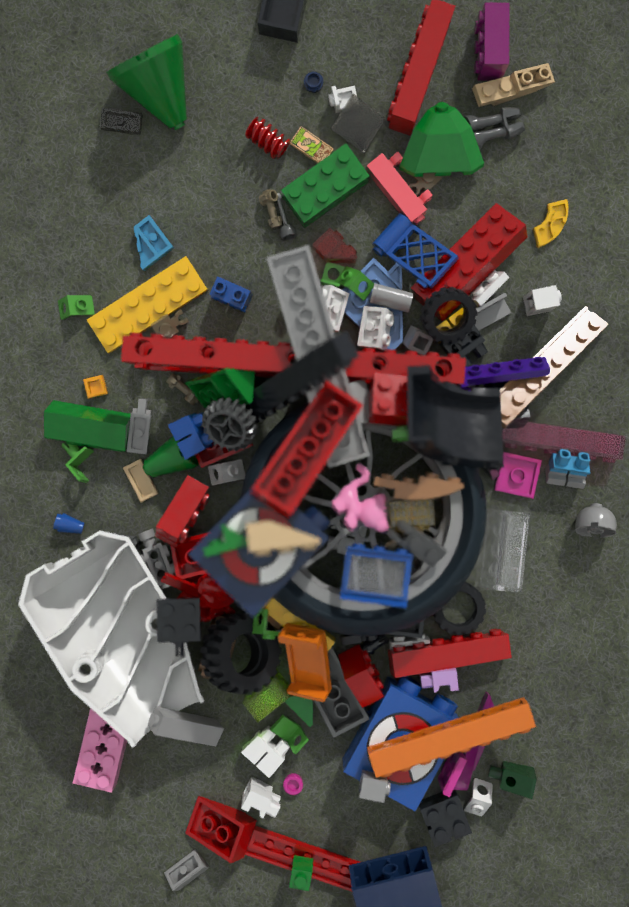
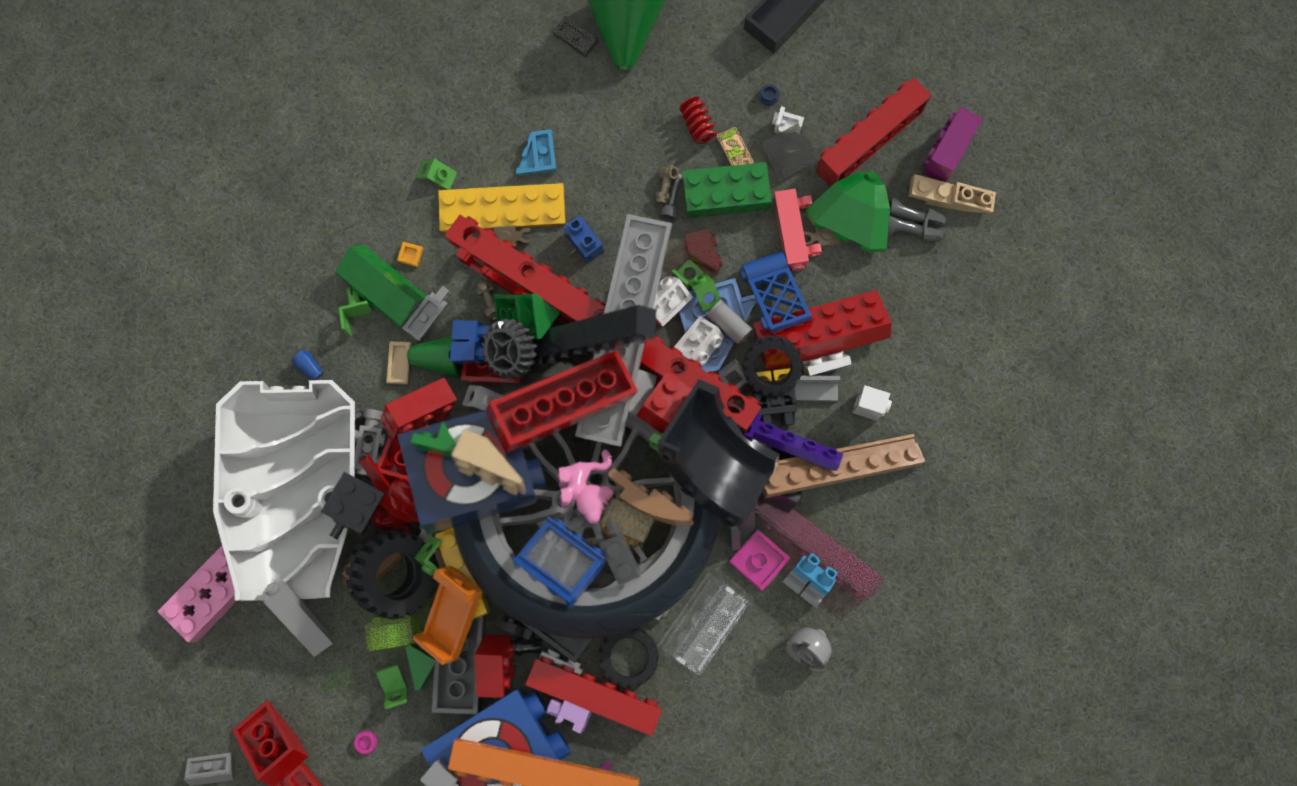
camera: 30 degrees right, 10 degrees down
(260, 796) = (327, 734): white hips -> none
(265, 752) = (359, 681): white hips -> none
(553, 224) = (922, 341): yellow tile -> none

